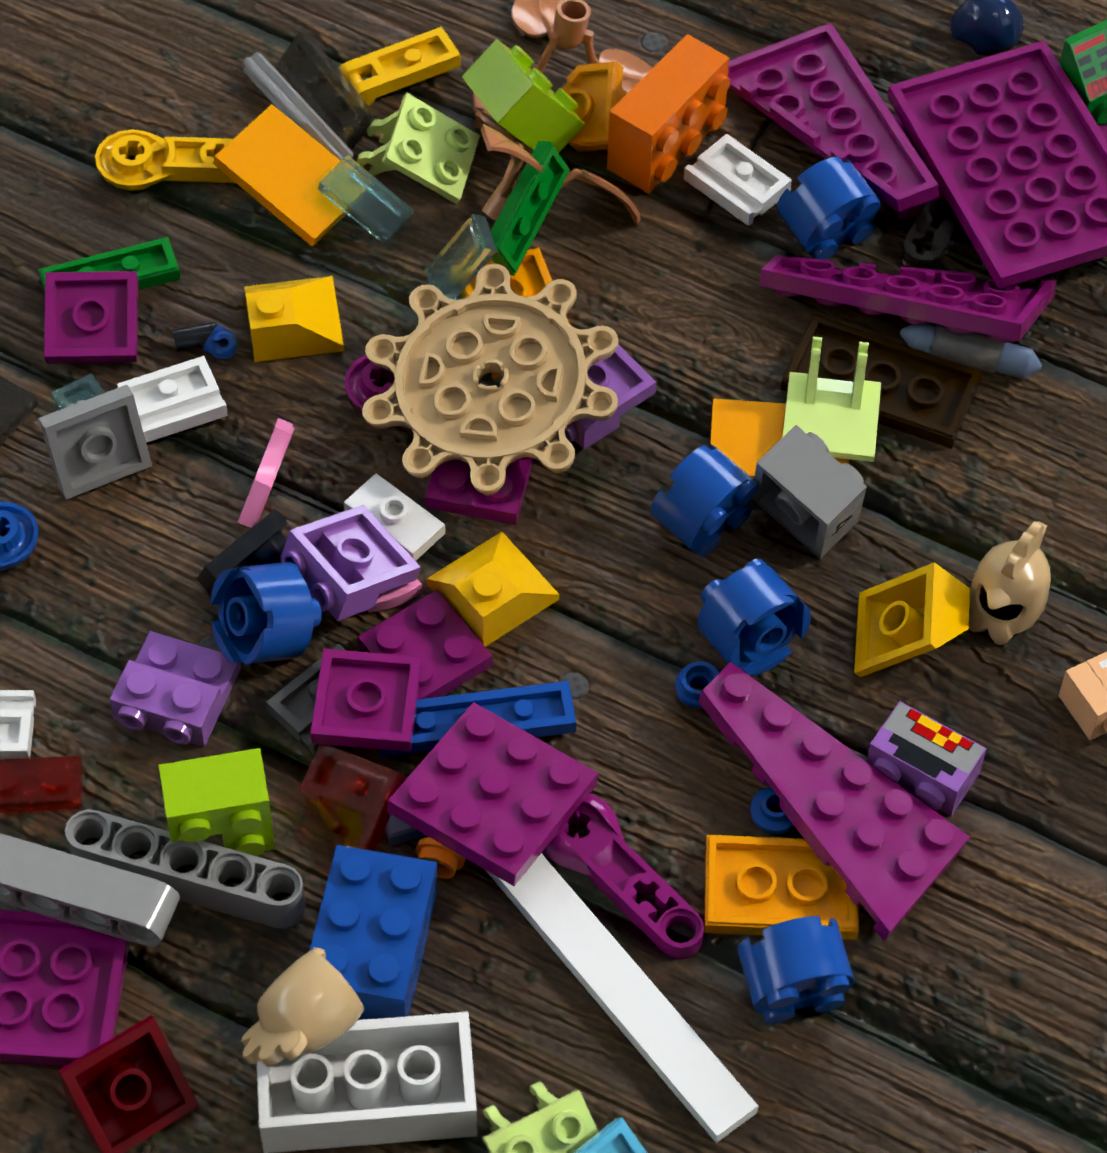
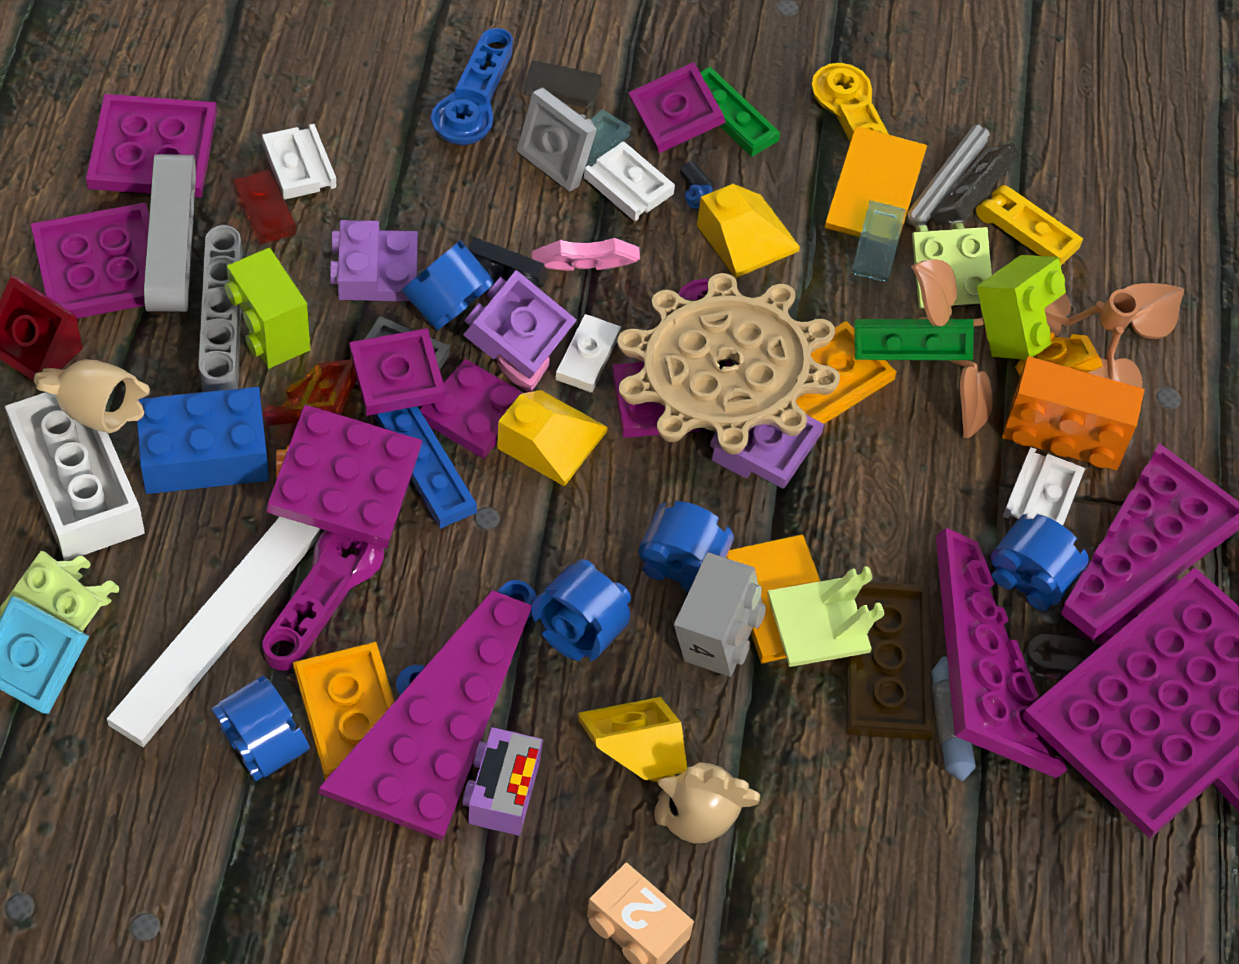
camera: 65 degrees right, 0 degrees up
(462, 257) = (846, 311): clear light blue tile -> none

